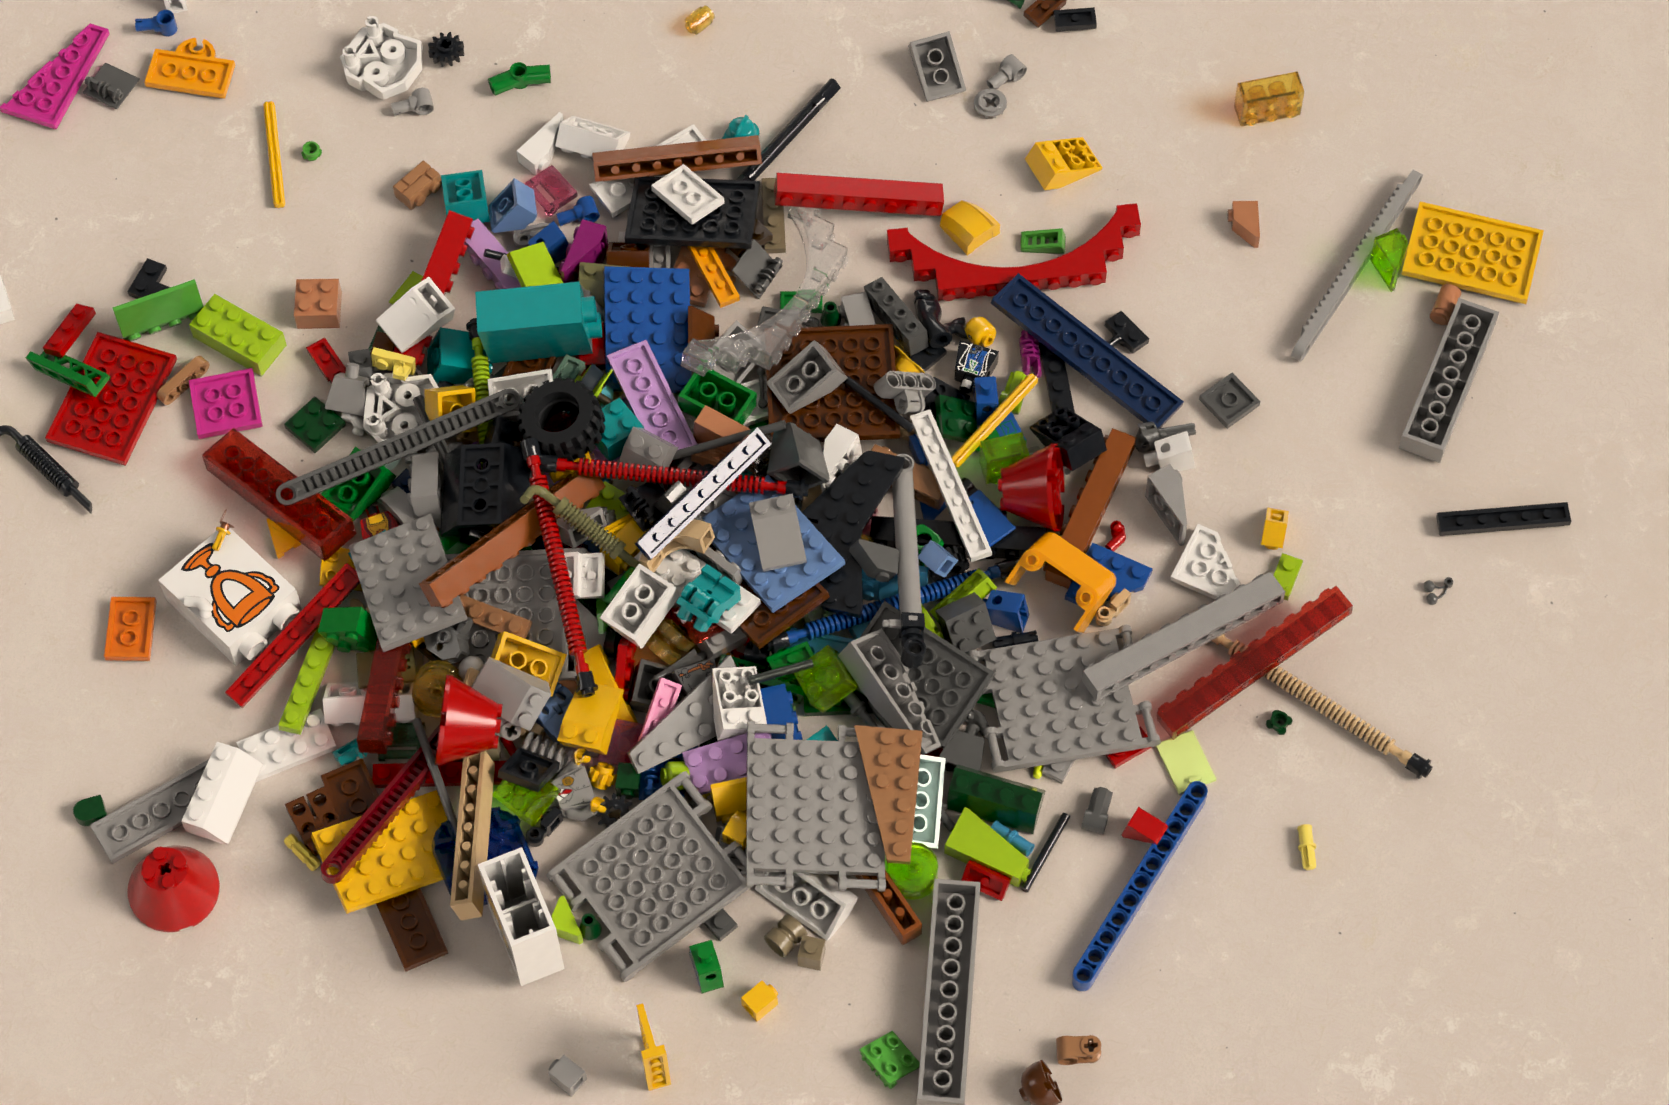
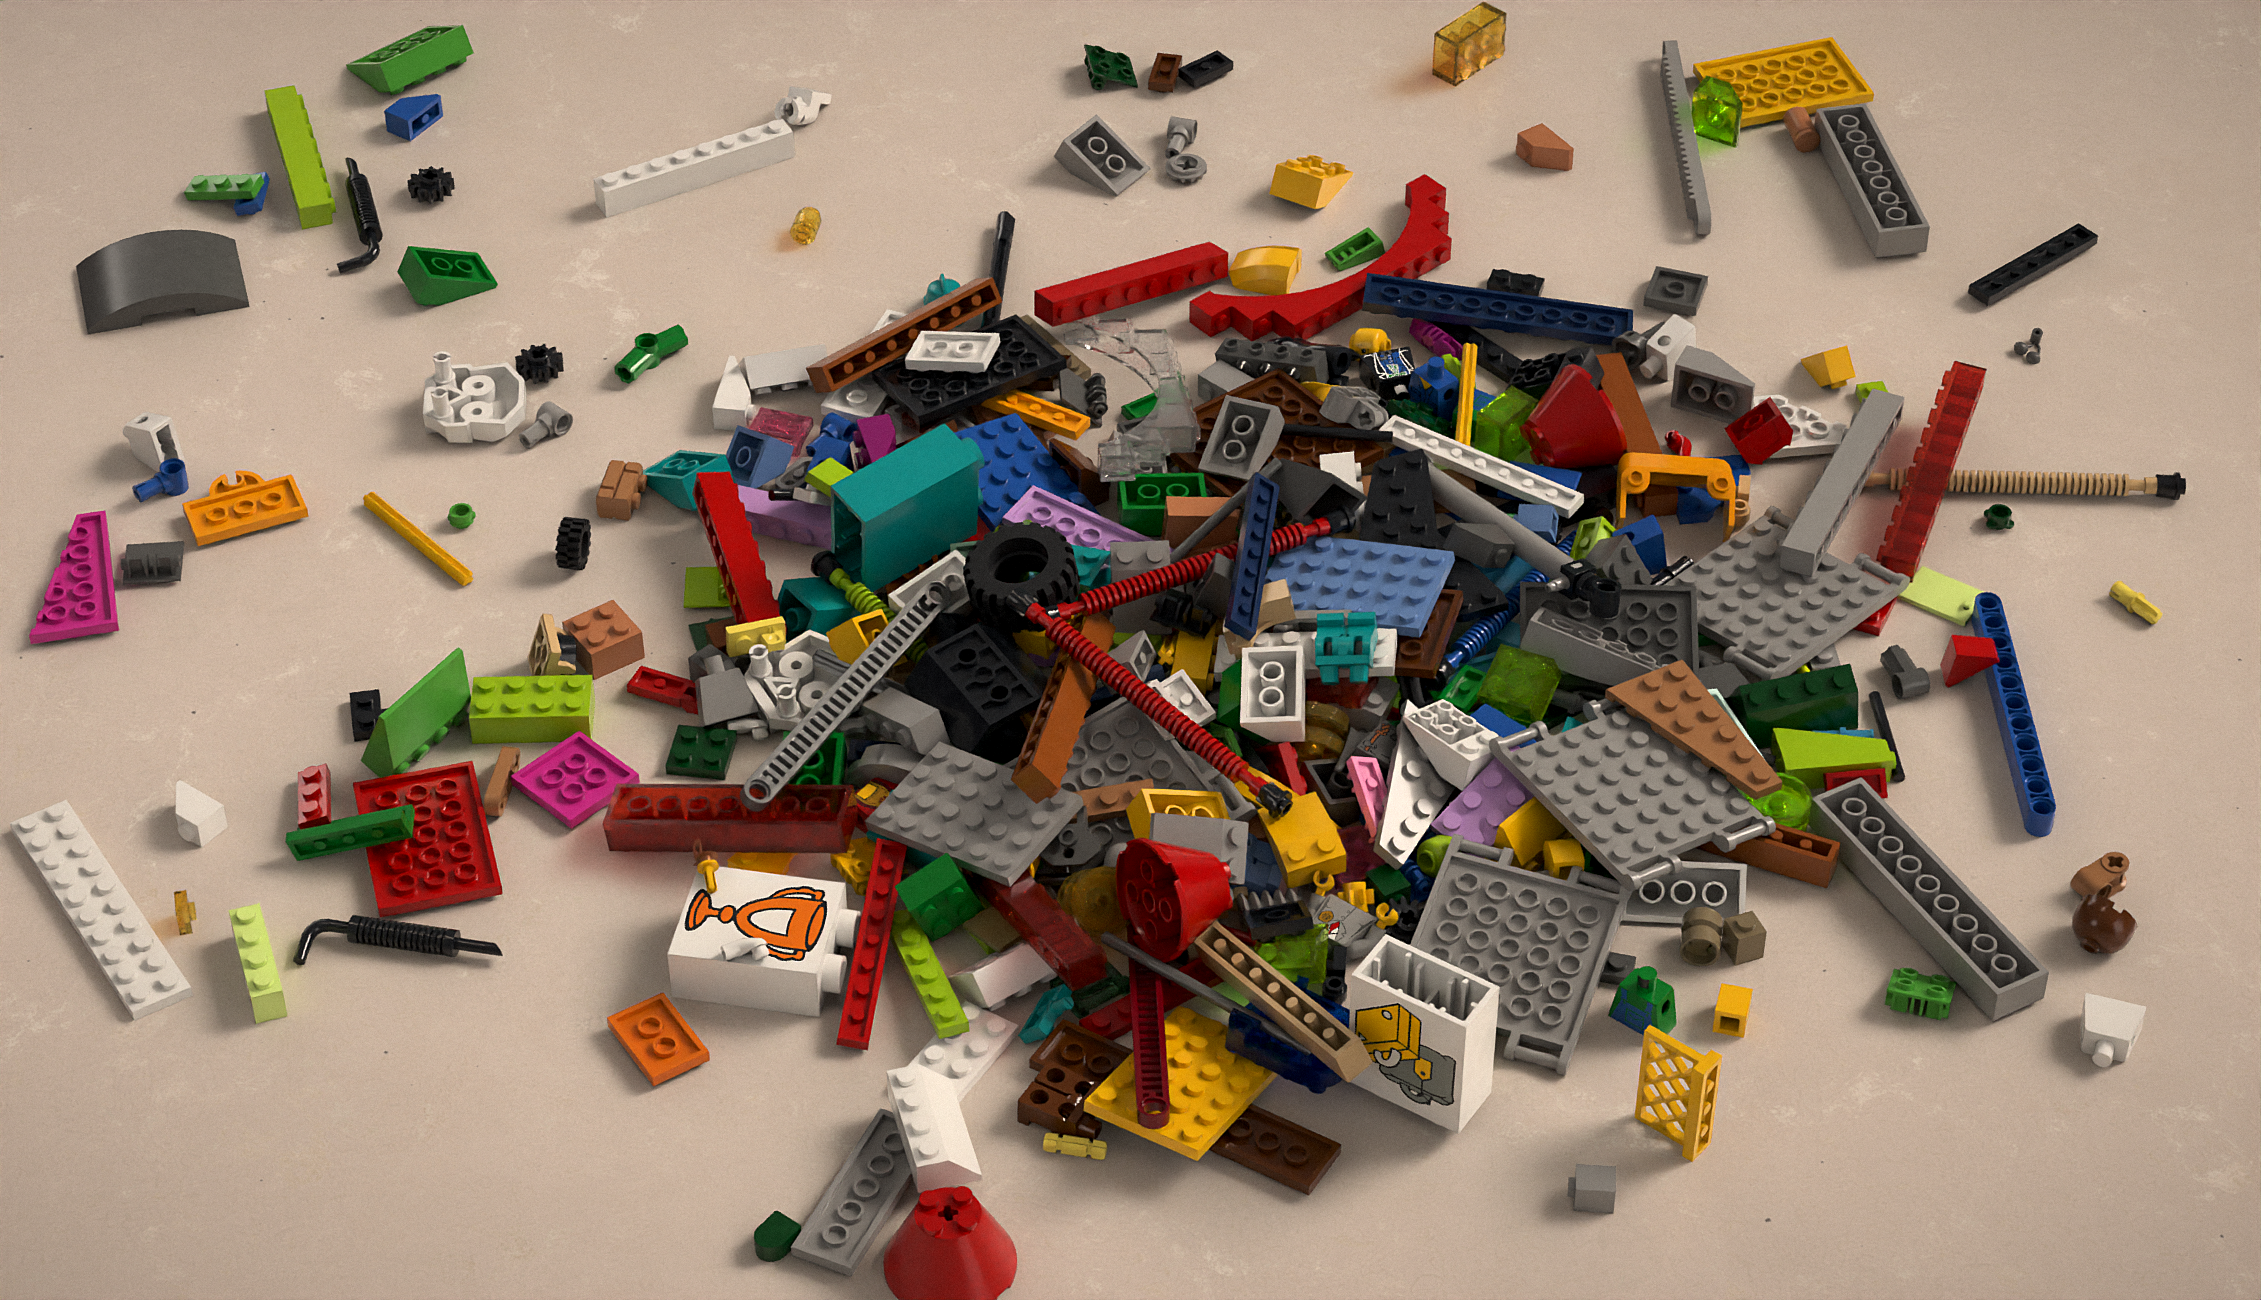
camera: 35 degrees left, 20 degrees down
(276, 300) = (551, 650): none -> tan piece
(352, 216) = (573, 543): none -> black tyre
(416, 315) = (752, 572): white slope -> none
(582, 523) = (1149, 645): olive piece -> none
(777, 532) = (1360, 558): light grey slope -> none
(779, 672) = (1477, 687): pearl dark grey bar -> none
(830, 315) = (1198, 391): dark green cone -> none
(1168, 560) = (1760, 432): none -> red slope

